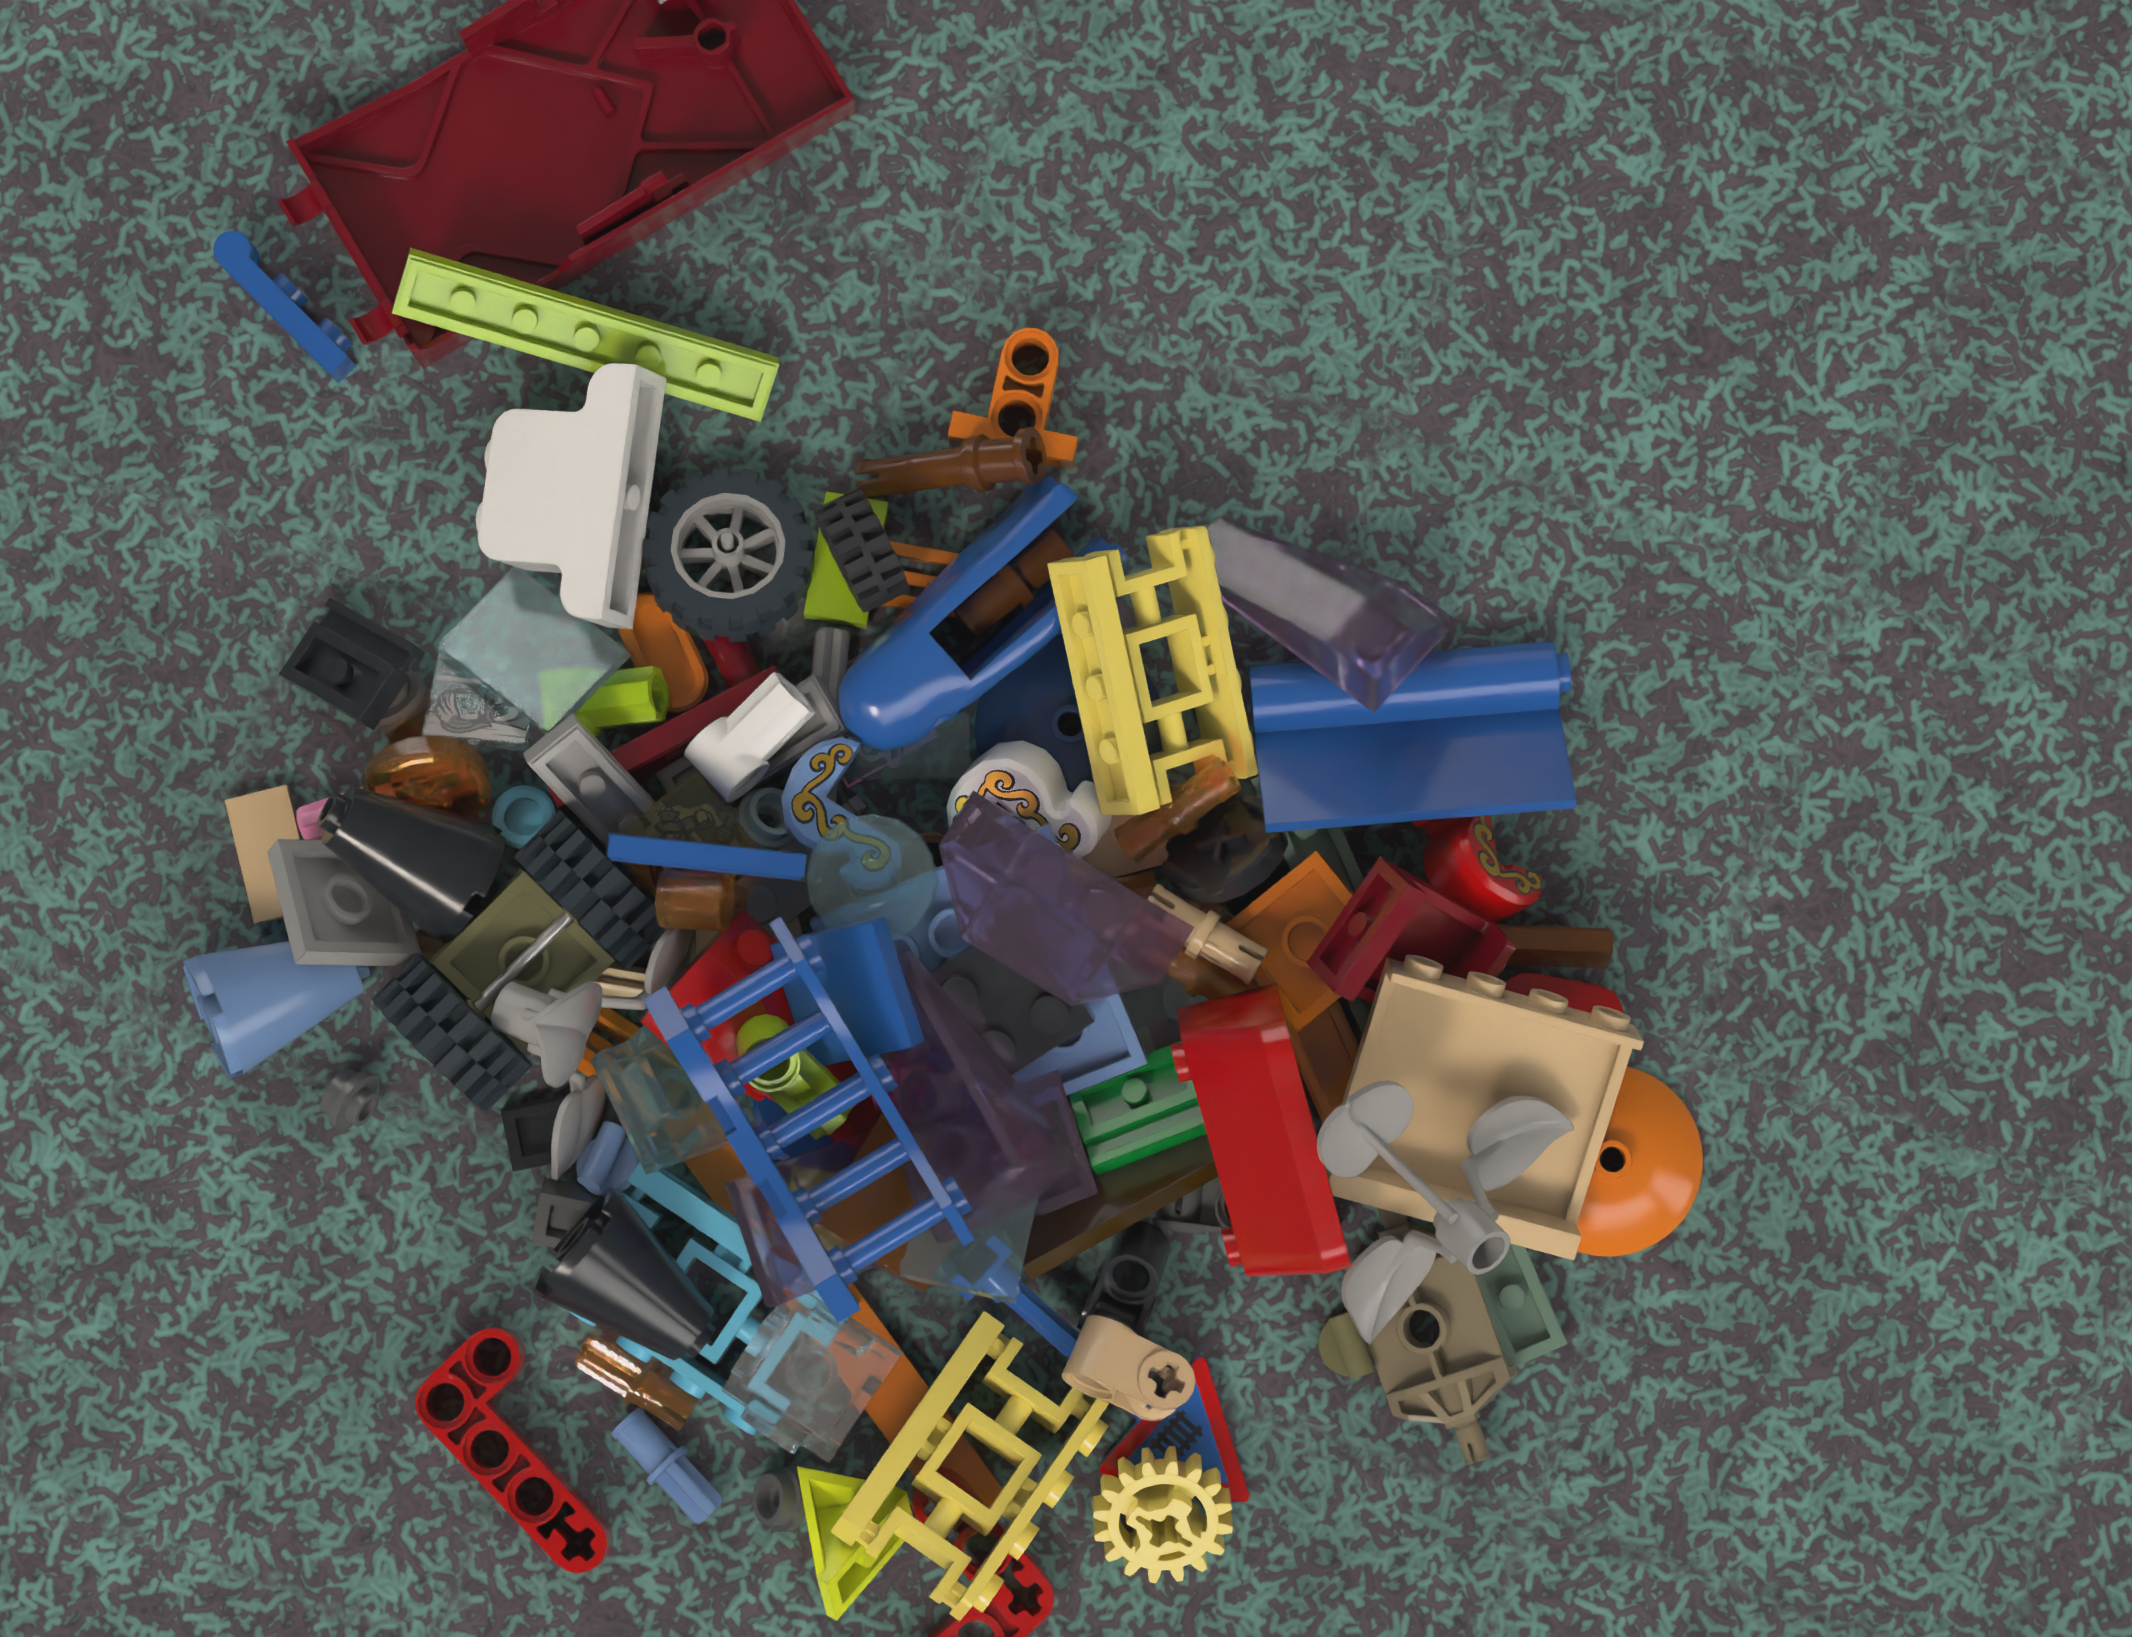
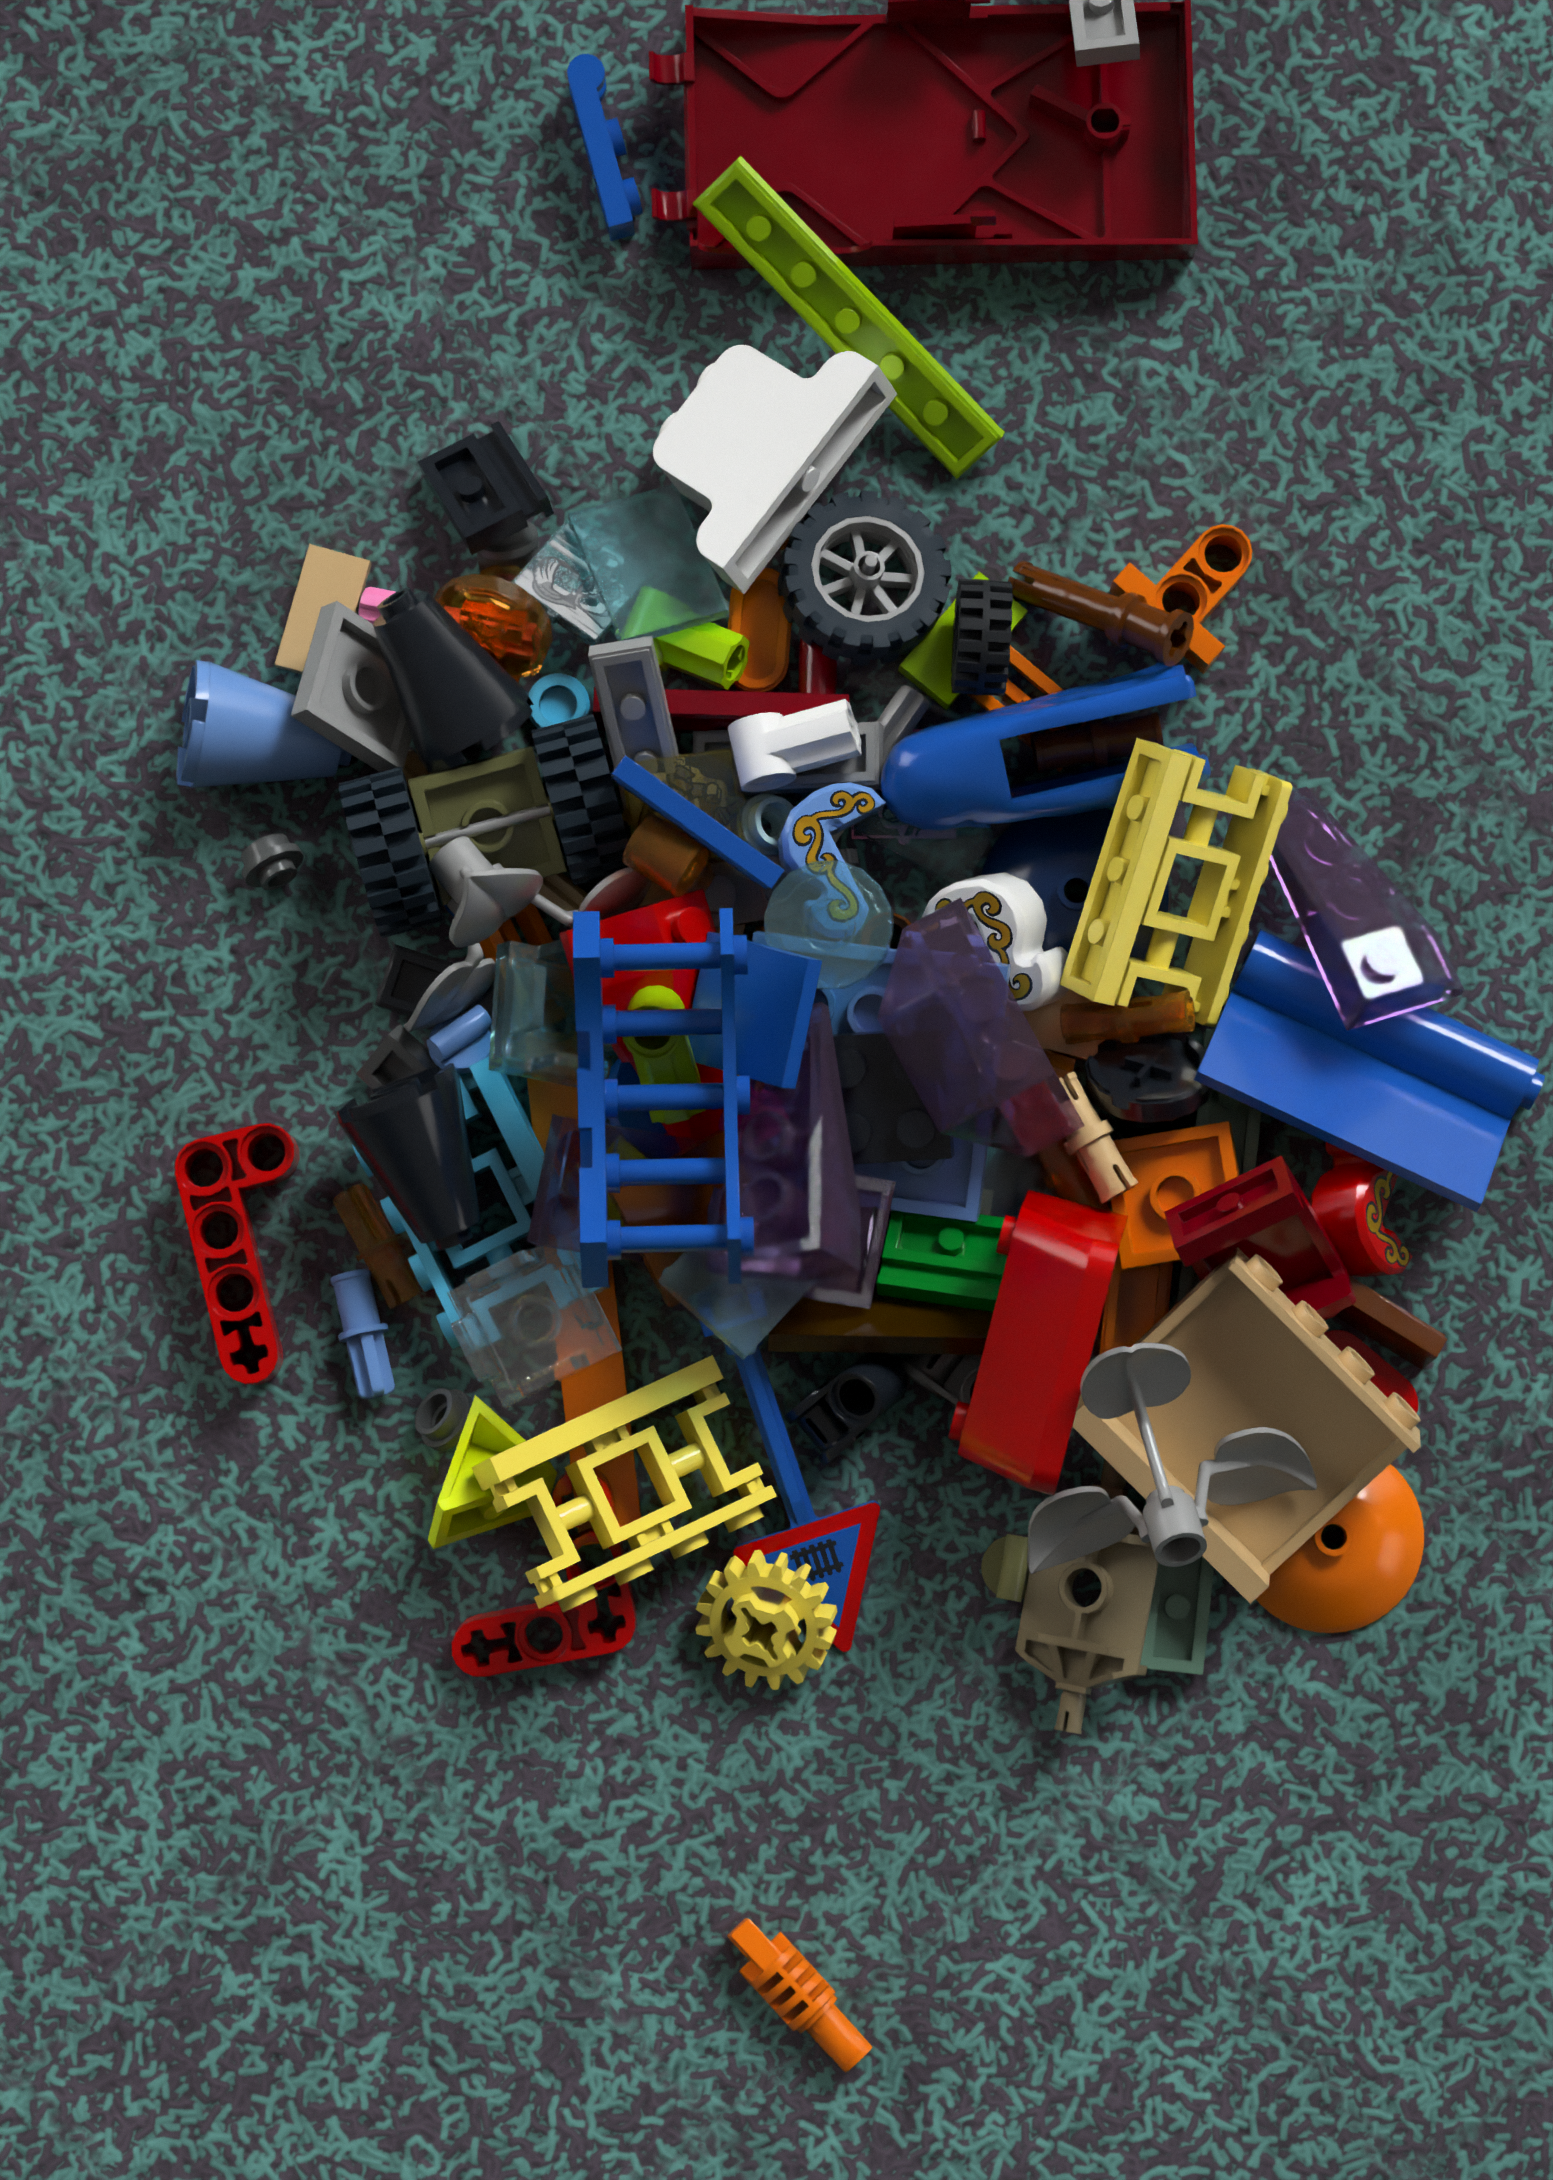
camera: 30 degrees right, 0 degrees up
(1118, 1368) = (802, 1470): tan piece -> none

